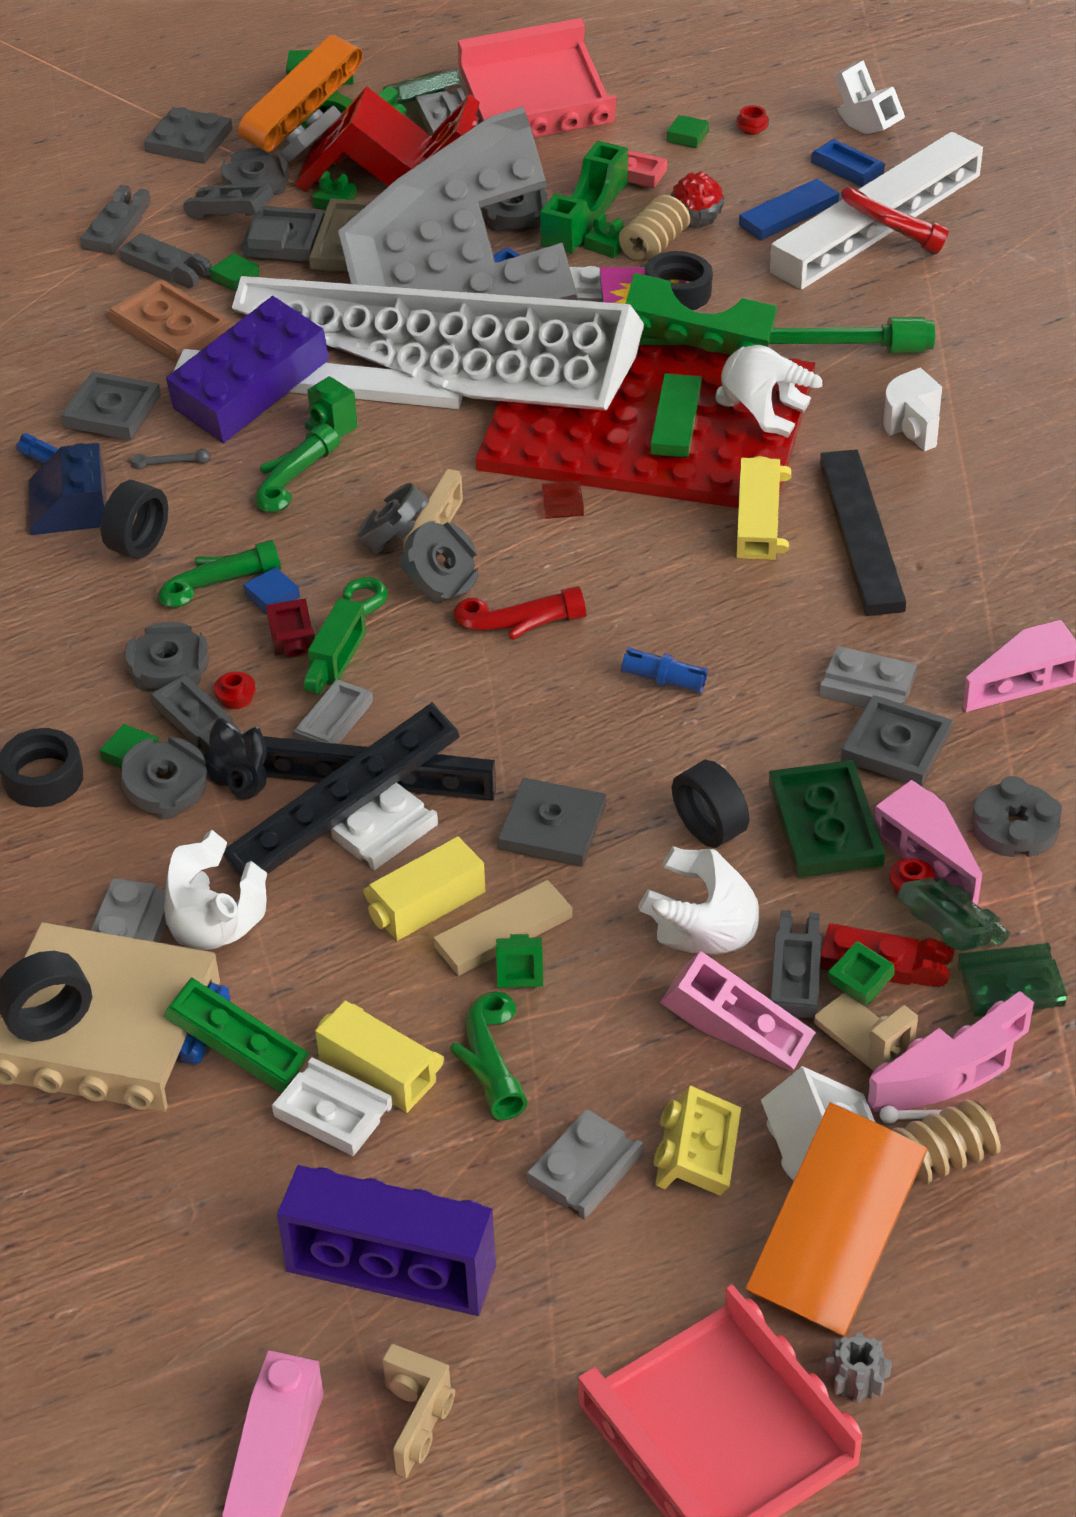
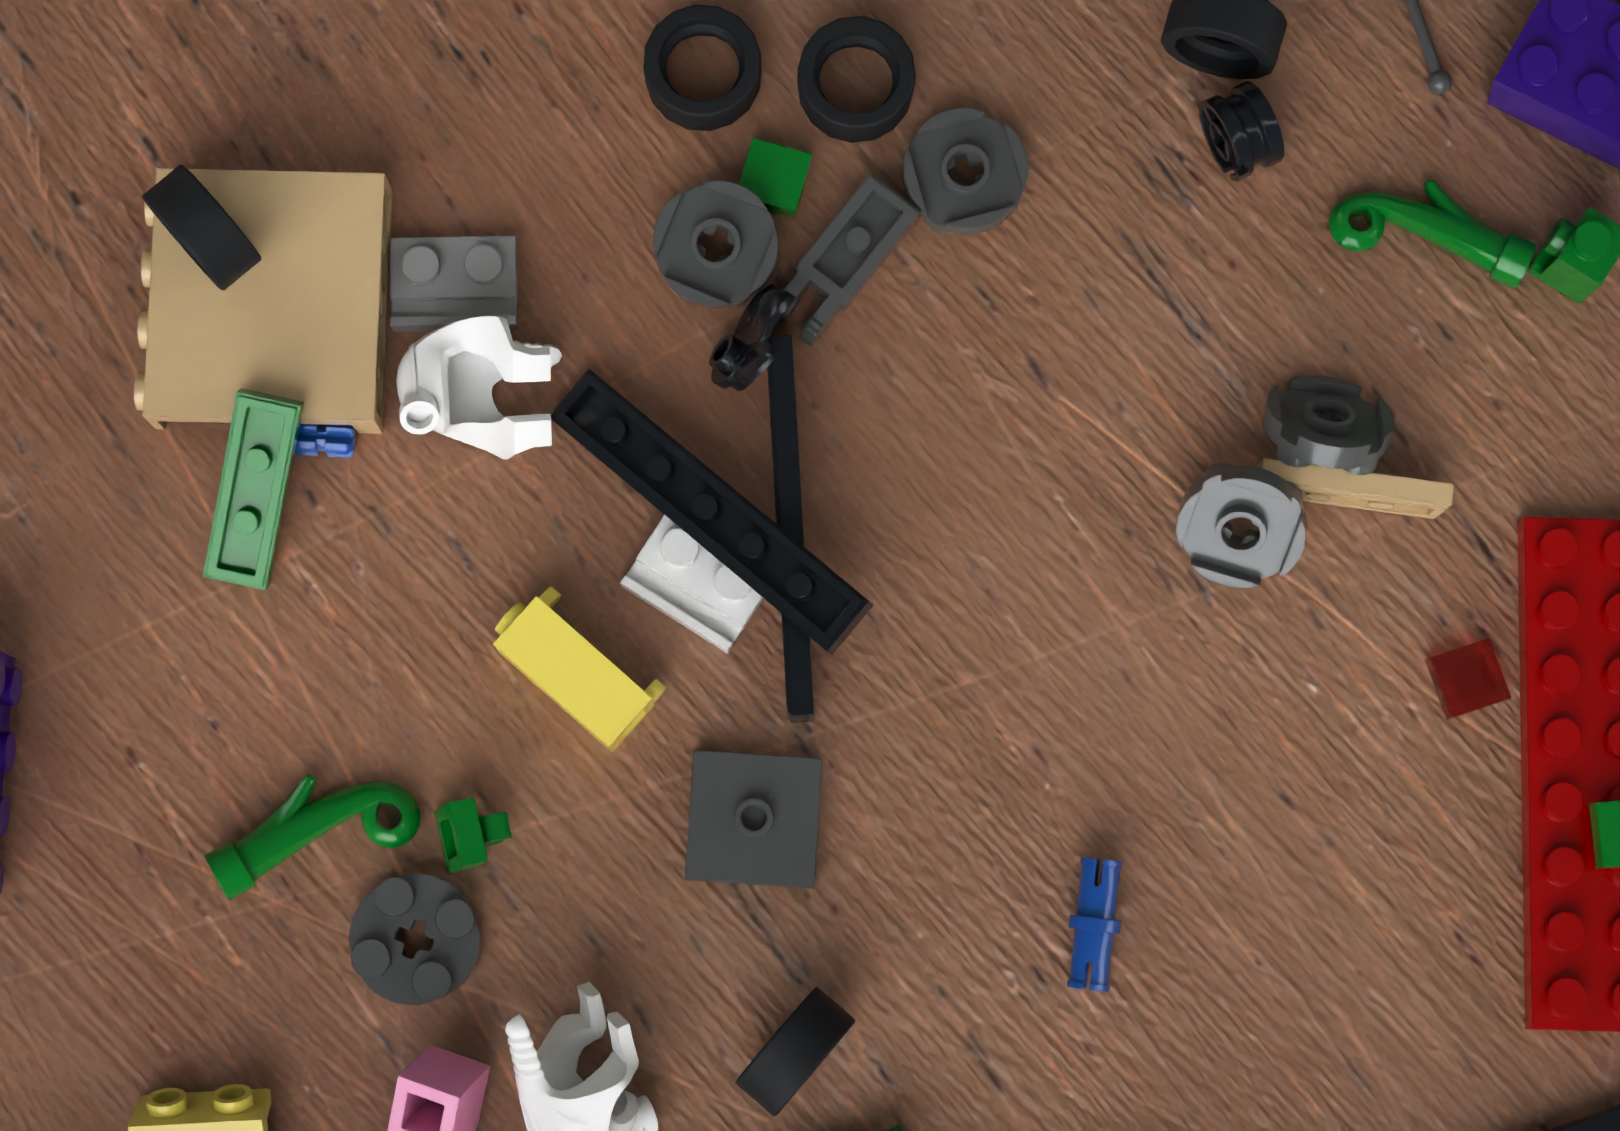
camera: 70 degrees right, 35 degrees up
(78, 675) = (850, 33): none -> black tyre
(197, 526) = (1241, 130): none -> black wheel
(209, 570) = (1182, 193): green plant -> none
(235, 690) = (916, 307): red plate -> none
(271, 588) = (1148, 281): blue tile -> none
(290, 627) = (1055, 336): dark red bracket -> none
(332, 1106) = (179, 644): white plate -> none
(334, 713) = (902, 448): light grey tile -> none
(341, 634) = (1063, 416): green piece -> none
(377, 1055) = (267, 677): light yellow brick -> none
(521, 617) = (1170, 685): red plant -> none
(526, 913) = (538, 795): tan tile -> none
(577, 986) = (397, 905): none -> dark grey plate
(585, 1163) = (155, 997): light grey plate -> none
(759, 508) = (1487, 1011): light yellow brick -> none

